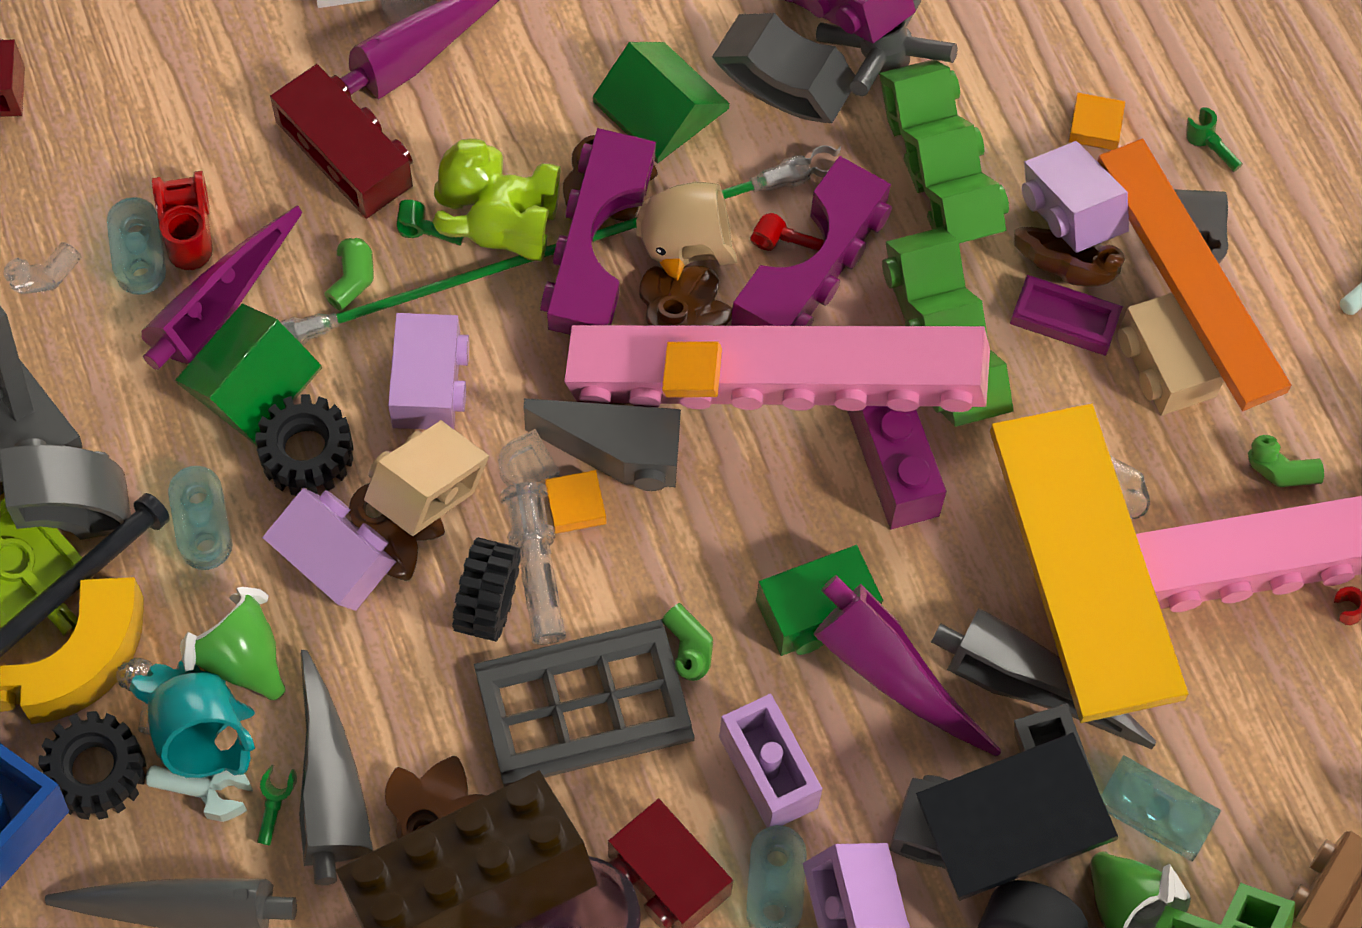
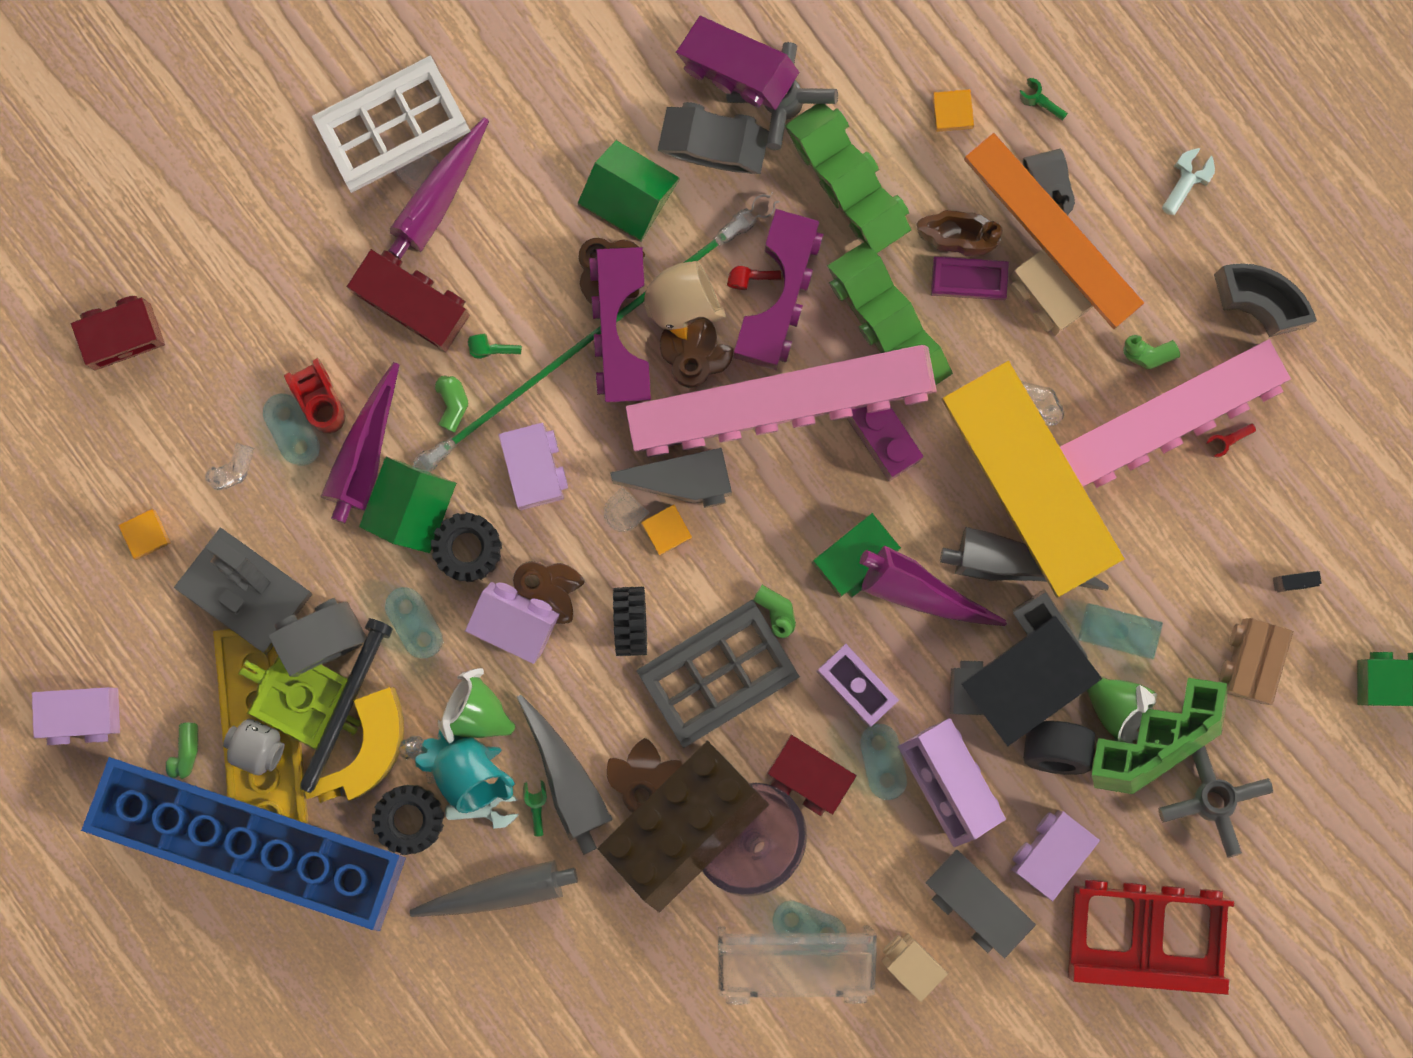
camera: 10 degrees left, 20 degrees up
(425, 477) = (561, 551): tan brick -> none
(506, 208) = (515, 305): lime animal -> none
(534, 538) = (646, 569): clear pin -> none
(692, 369) = (724, 425): light orange tile -> none
(1076, 196) = (954, 188): lavender brick -> none

